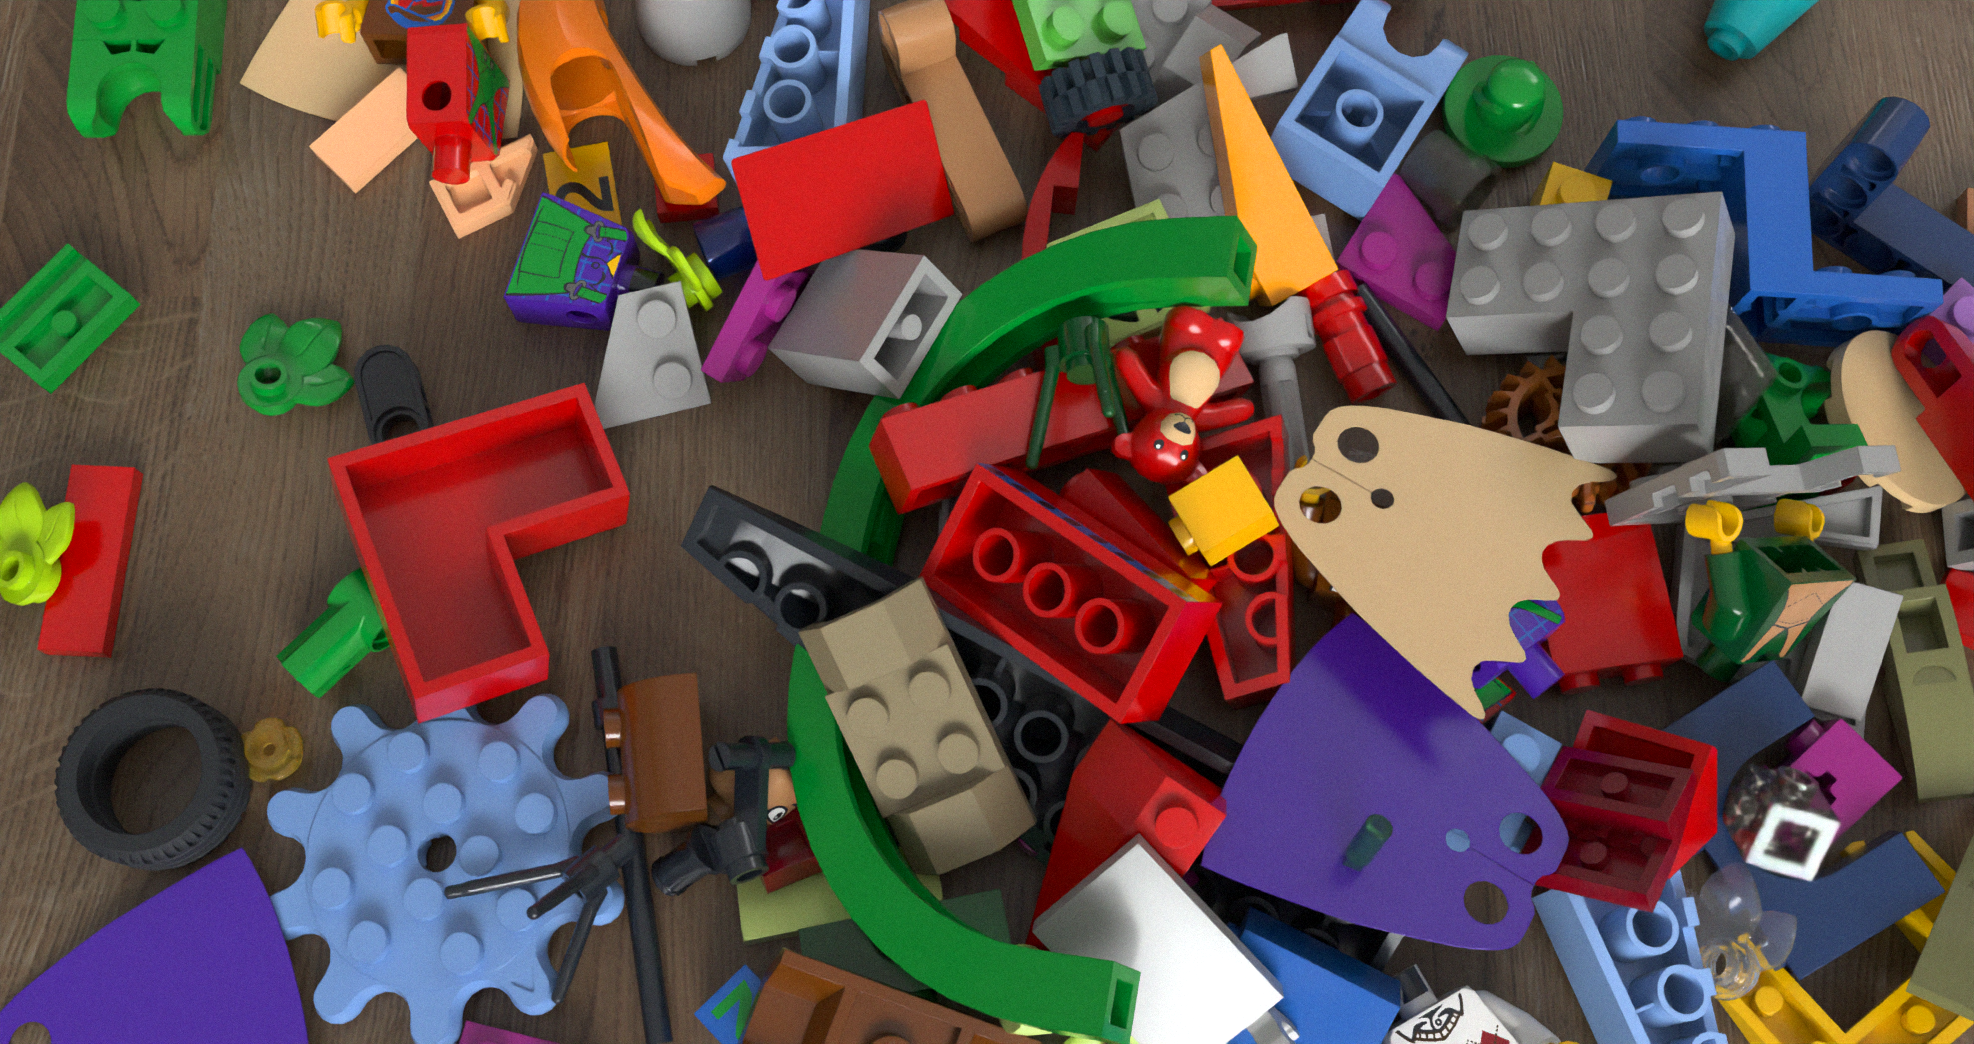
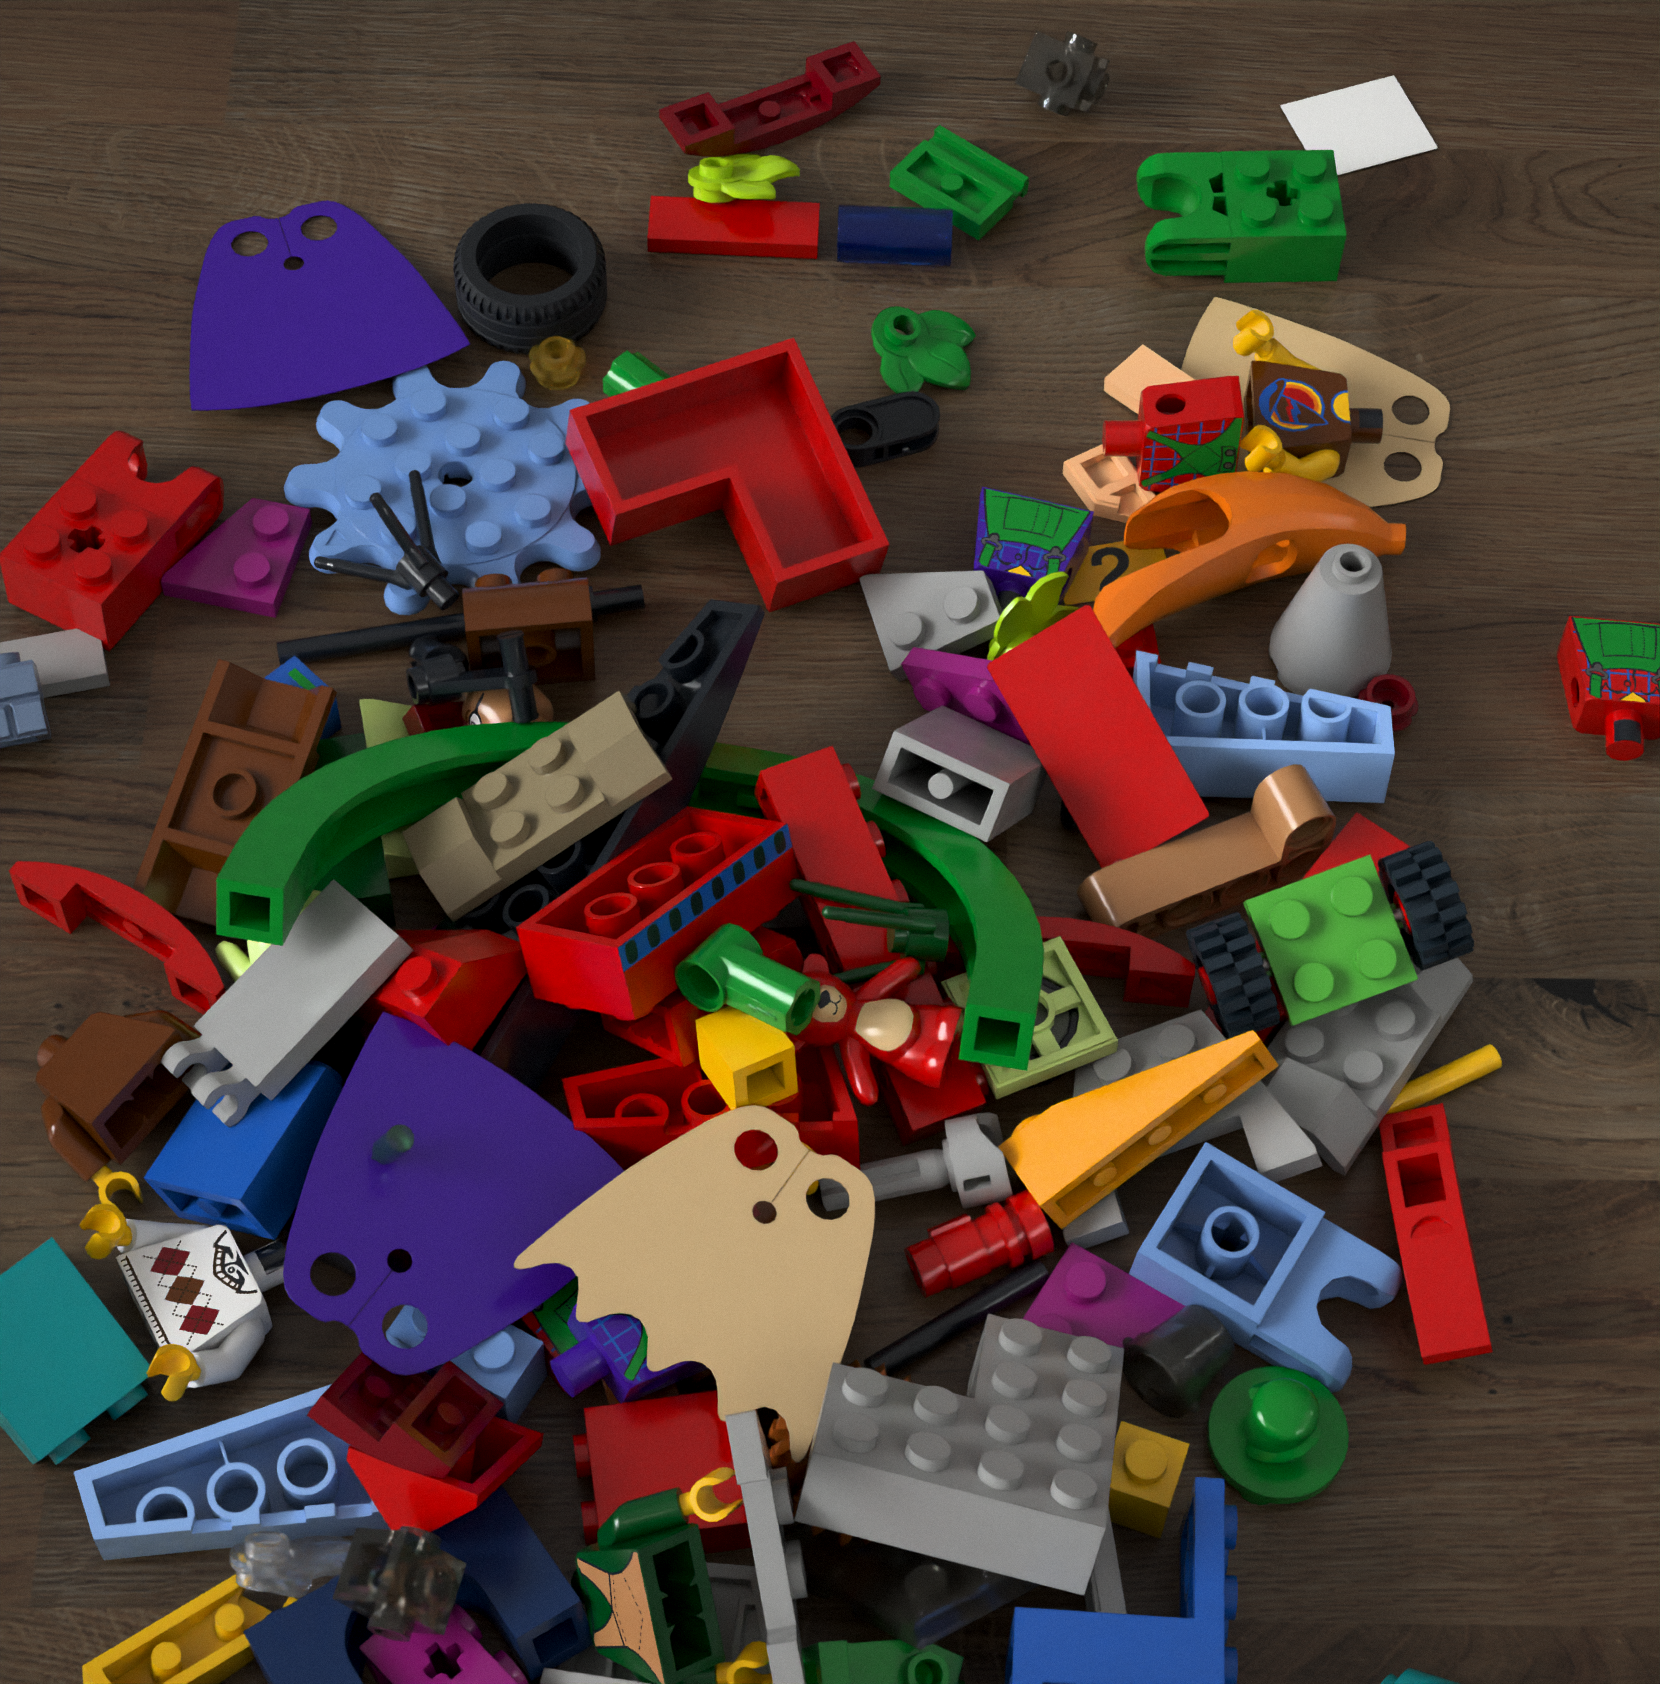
camera: 90 degrees right, 15 degrees down
(131, 385) = (894, 235): none -> clear blue pin
(1164, 511) = (735, 972): none -> green piece

